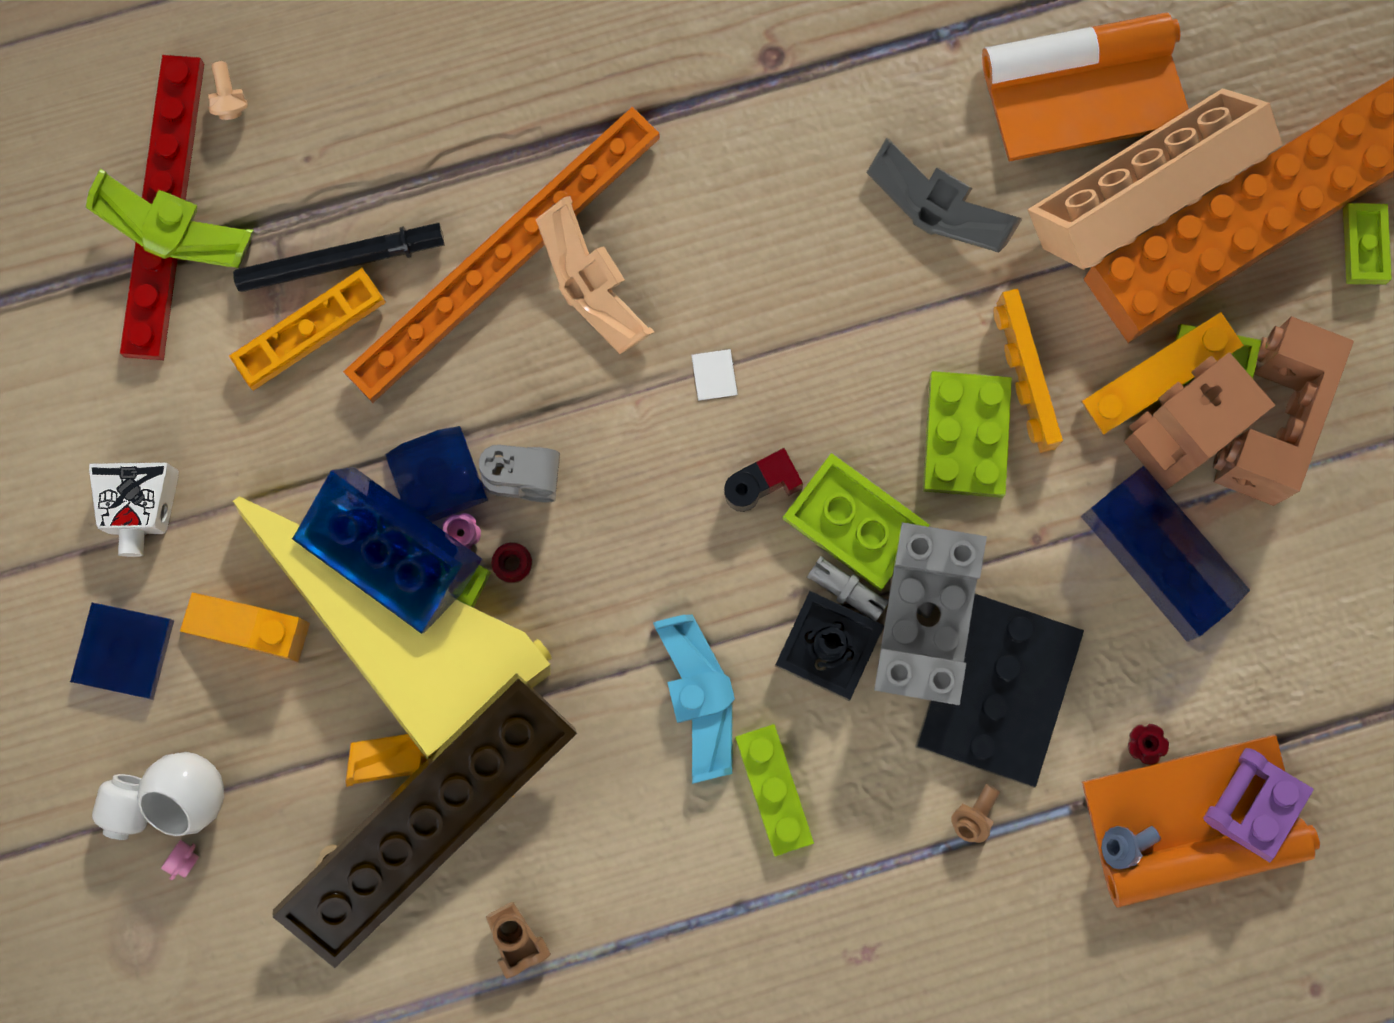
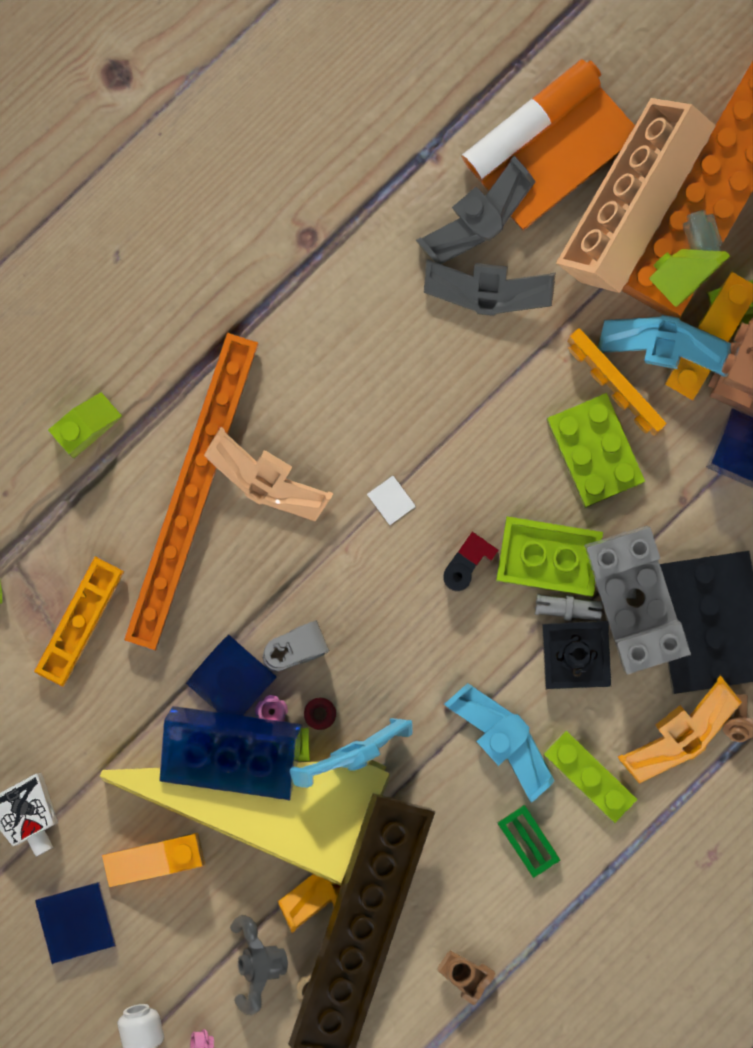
camera: 25 degrees left, 5 degrees up
(181, 793) = (179, 999): white helmet -> none
(289, 801) = (256, 964): none -> dark grey piece
(339, 257) = (72, 556): black axle -> none
(427, 126) = (85, 424): none -> lime slope
(518, 622) = (354, 755): none -> medium azure plate
(670, 862) = (544, 865): none -> green tile
(904, 797) = (683, 734): none -> light orange plate
(970, 120) = (479, 215): none -> dark grey plate
(1104, 352) = (666, 341): none -> medium azure plate
(1170, 279) = (685, 272): none -> lime slope
(1209, 252) = (702, 232): none -> clear light blue brick

